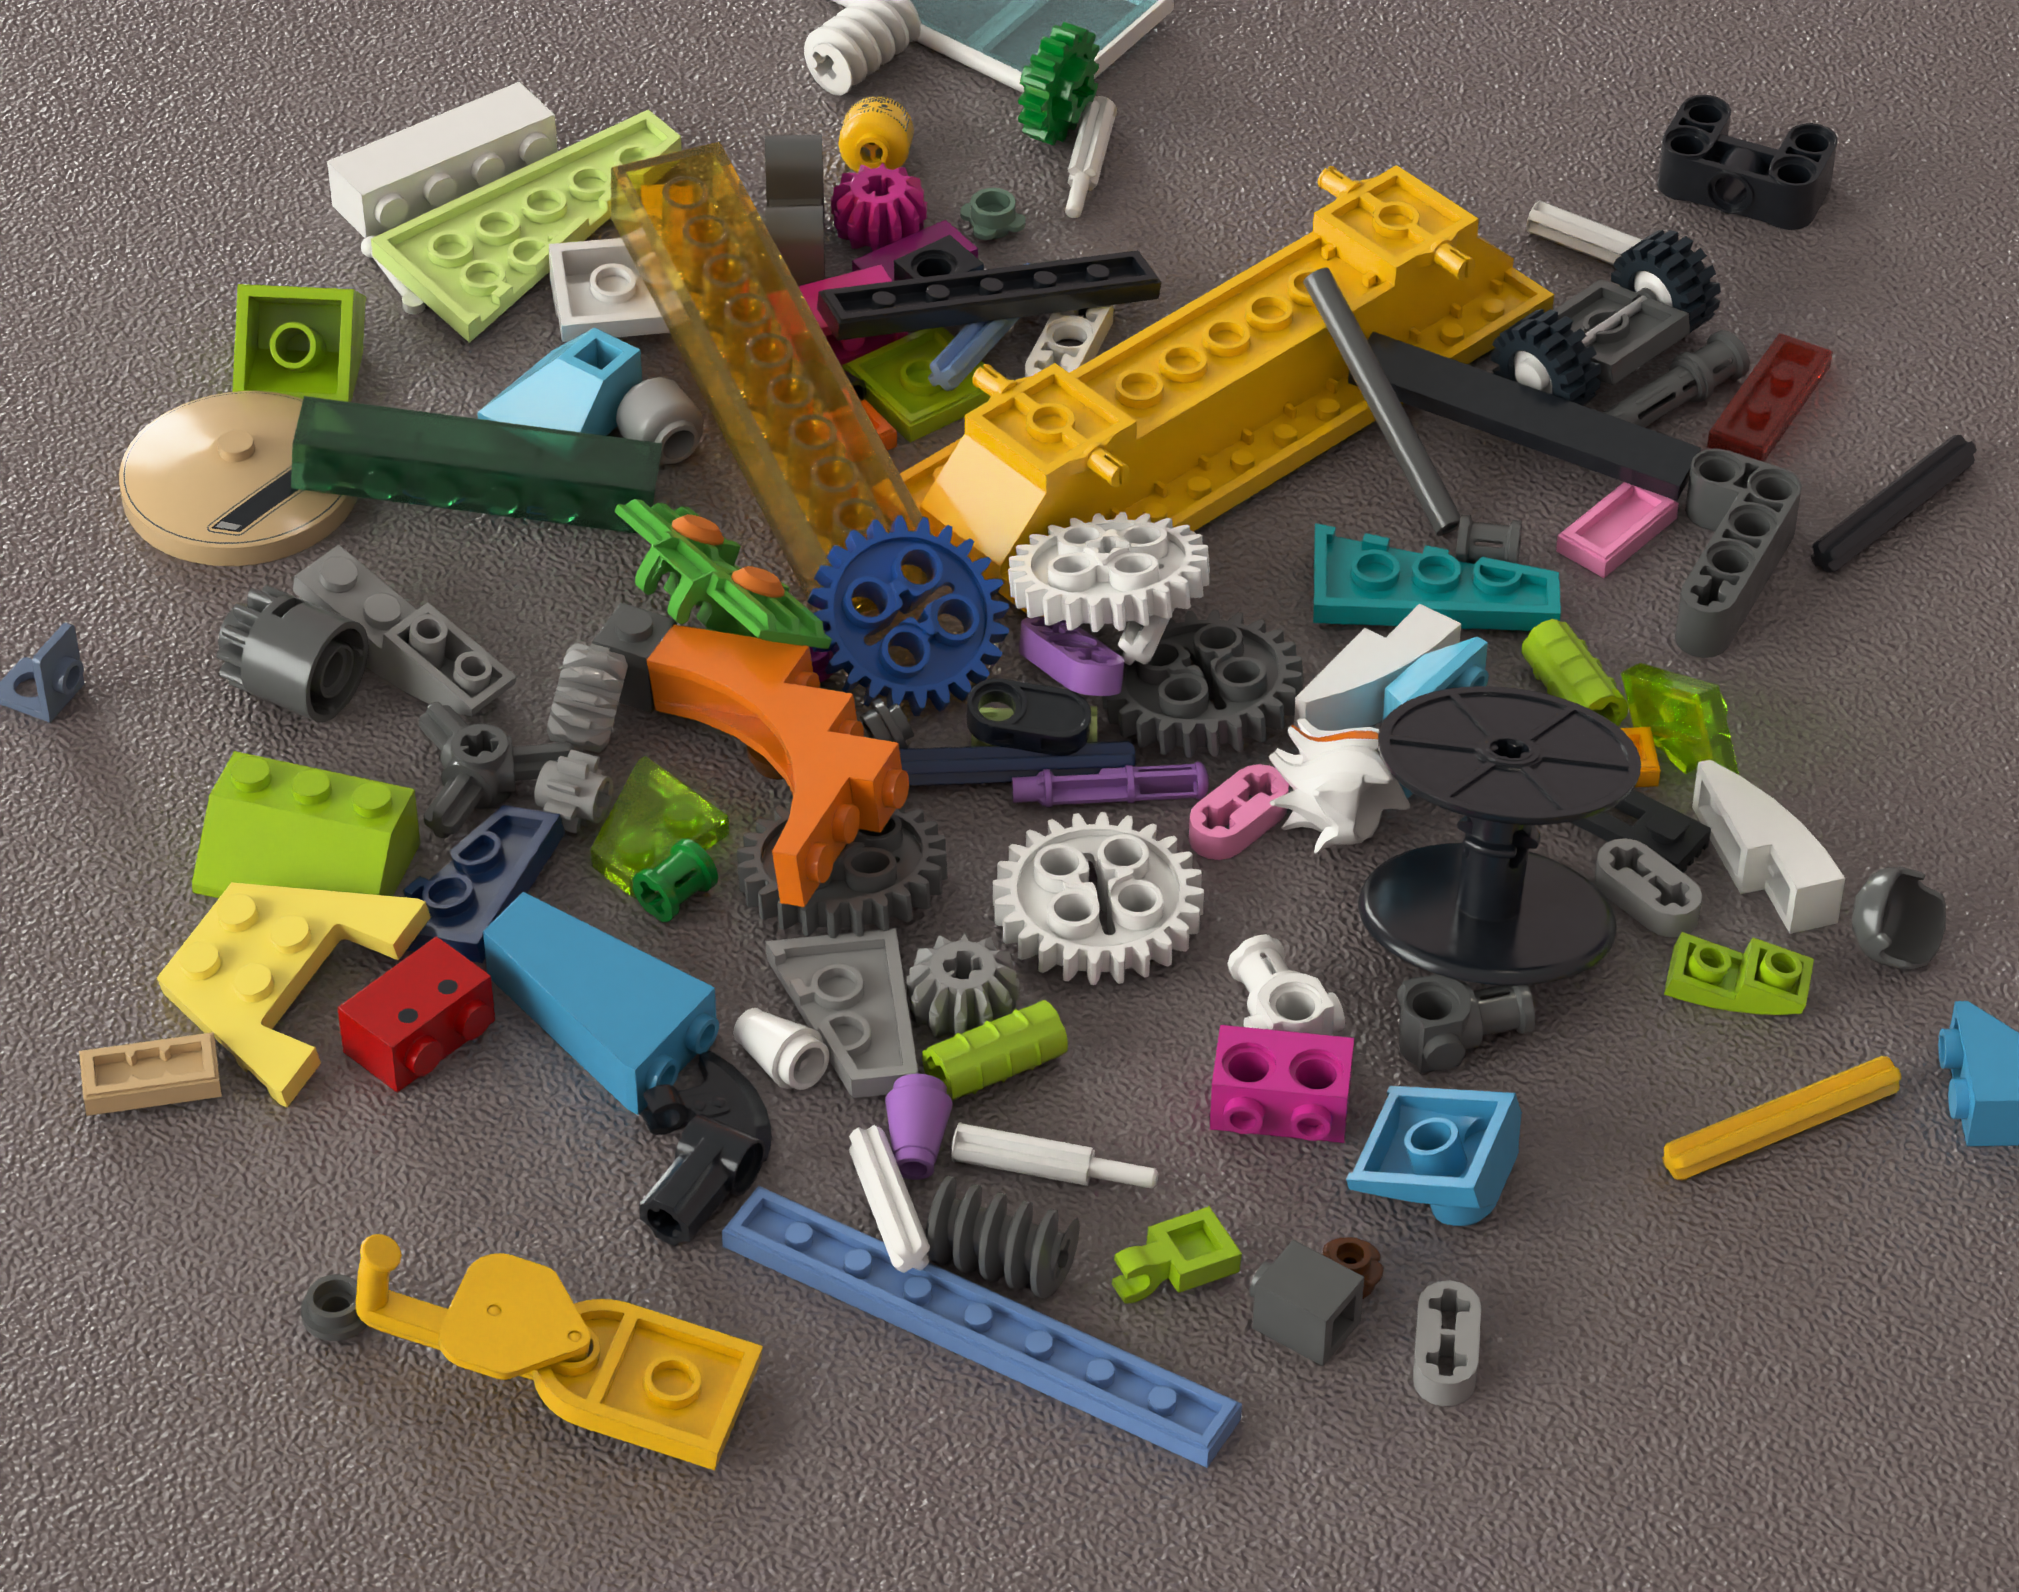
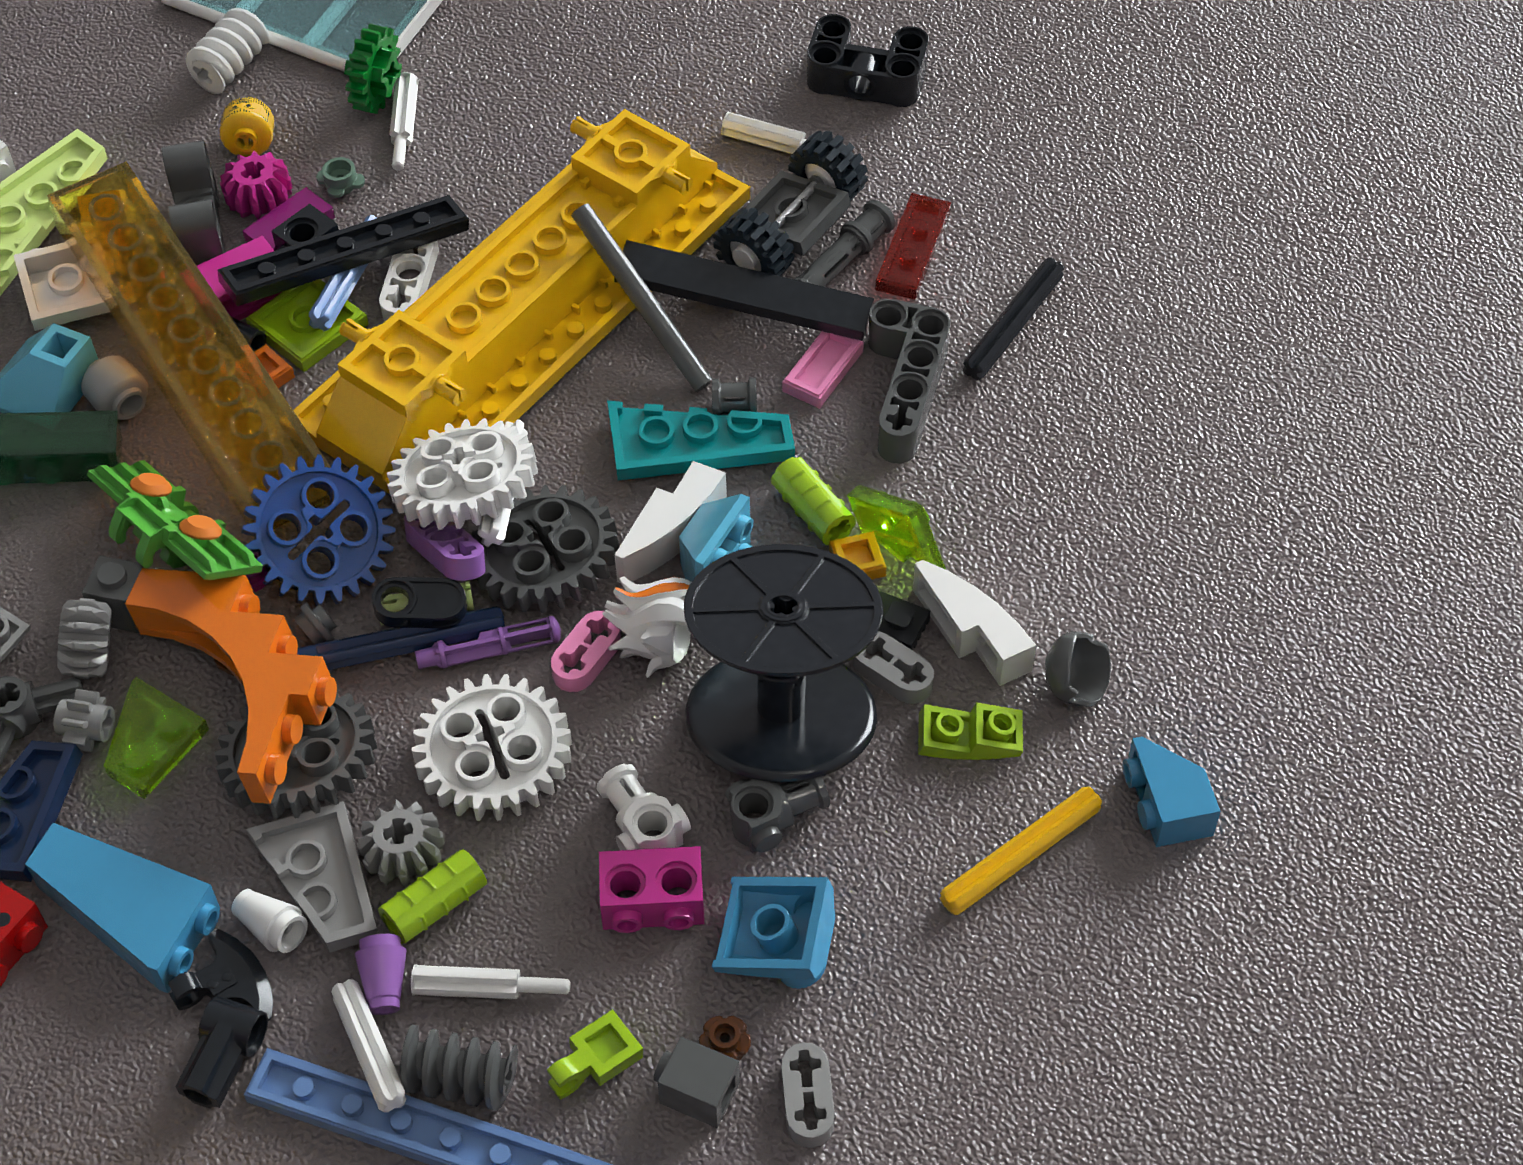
camera: 10 degrees left, 10 degrees up
(675, 880) = (171, 783): green bush -> none

